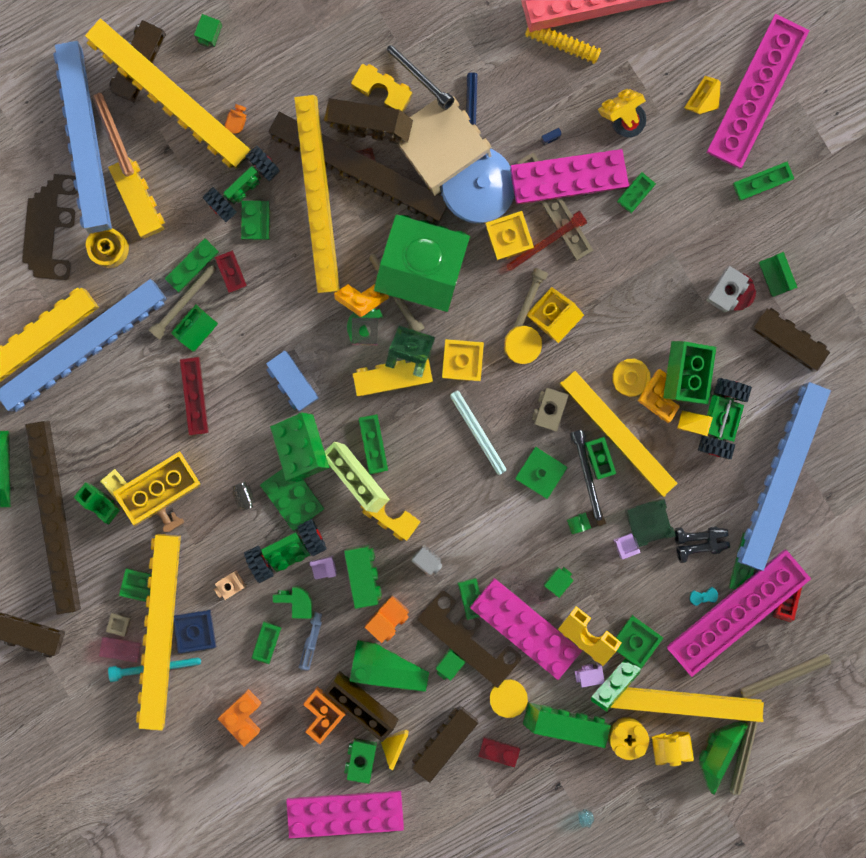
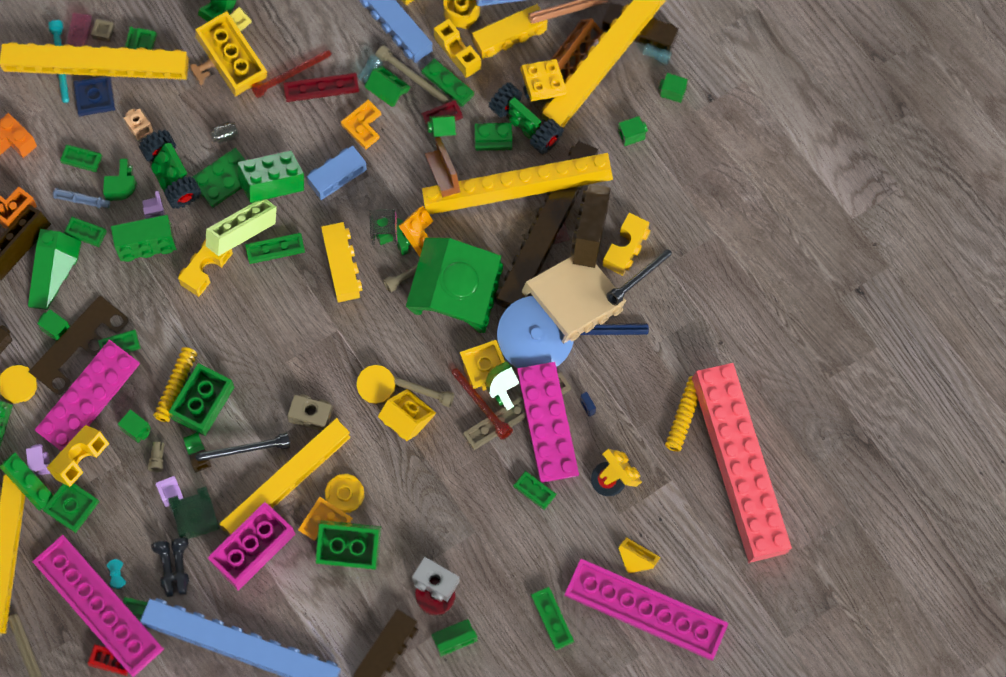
camera: 85 degrees right, 20 degrees down
(152, 257) = (463, 57): none -> yellow arch
(159, 135) = (572, 45): none -> dark orange fence
(168, 43) = (660, 54): none -> clear light blue pin
(170, 342) = (372, 63): none -> clear light blue pin
(193, 458) = (261, 88): none -> clear red piece
(203, 162) = (543, 80): none -> yellow plate
(236, 119) = (589, 115): orange arm -> none
(238, 359) = (358, 124): none -> light orange plate
(246, 271) = (441, 125): none -> green brick
(256, 76) = (632, 131): none -> green brick
(300, 270) = (443, 170): none -> dark orange fence
(348, 636) = (85, 231): none -> green plate
(385, 620) = (96, 260): orange brick -> none
(412, 347) = (368, 274): clear green panel -> none
(427, 561) = (158, 297): light grey brick -> none
(462, 360) = (358, 325): yellow panel -> none
(478, 432) = (287, 346): light aqua axle -> none
(516, 542) = (175, 383): none -> yellow piece
(532, 220) = (498, 381): none -> brick
(535, 516) = (201, 399): none -> green brick
(541, 472) = (246, 408): green plate -> none
(593, 560) = (156, 460): none -> dark tan pin
(600, 458) = (260, 460): green brick -> none
(686, 466) = (251, 546): none -> dark pink slope
(694, 423) = (295, 549): yellow slope -> none
(725, 418) = (301, 582): plate -> none

